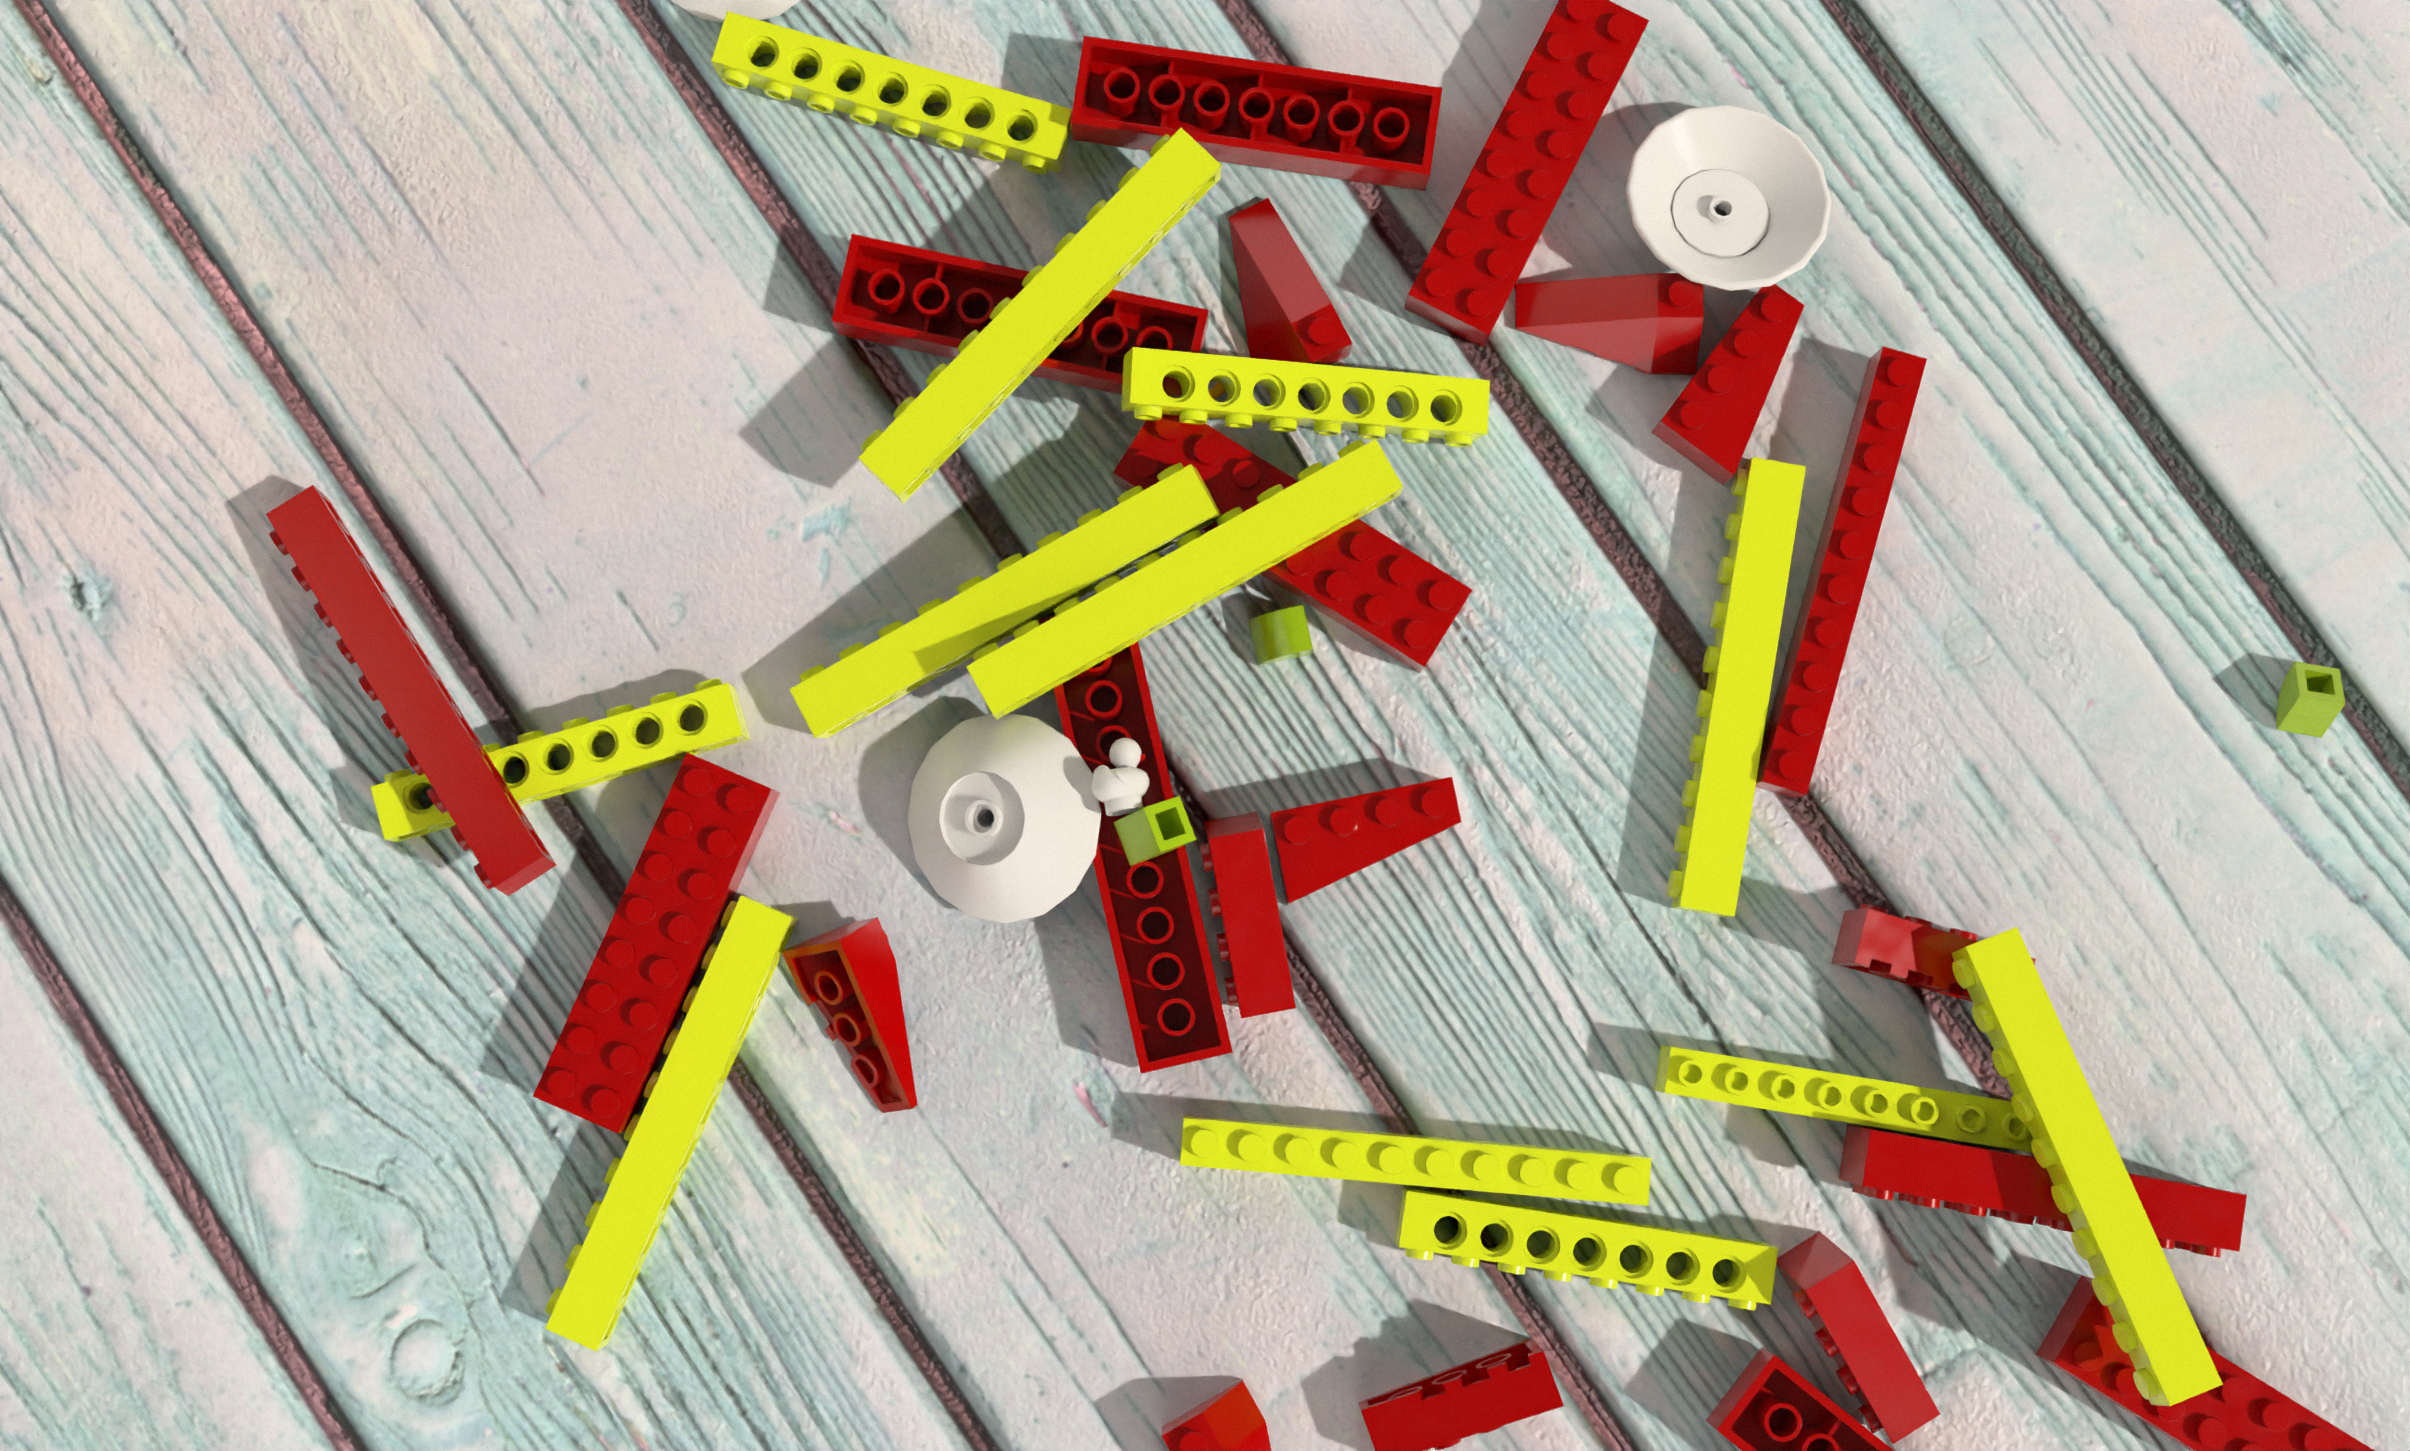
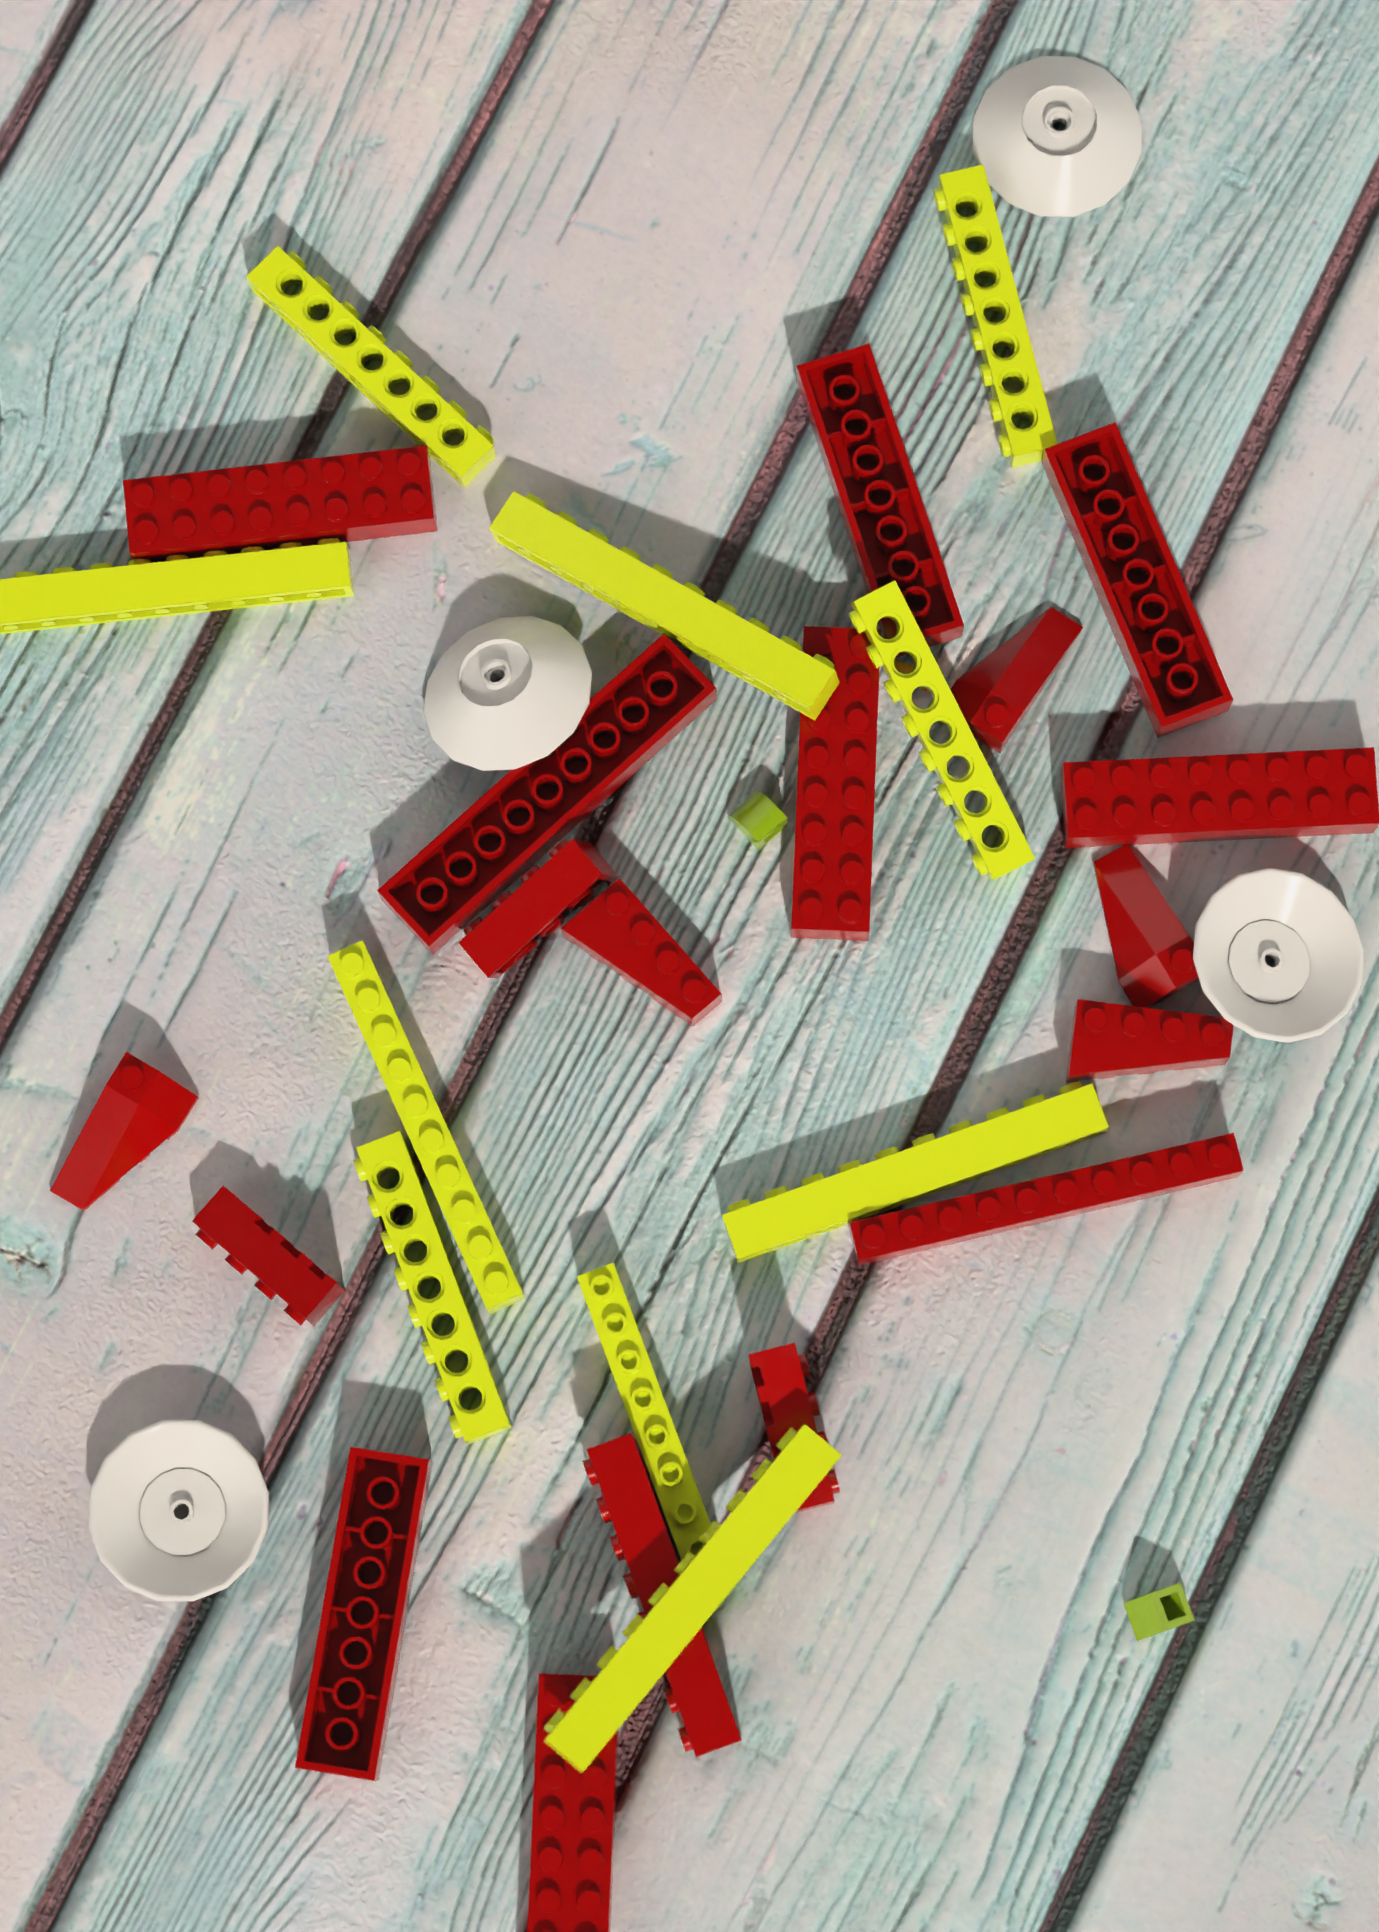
camera: 70 degrees right, 5 degrees down
(410, 691) = (360, 232): red brick -> none
(858, 992) = (328, 661): red wedge -> none
(1040, 315) = (885, 506): neon yellow brick -> none
(1125, 785) = (575, 758): white animal -> none
(1154, 830) = (556, 798): lime brick -> none
(1185, 578) = (752, 717): neon yellow brick -> none
(1857, 1336) = (475, 1523): red wedge -> none

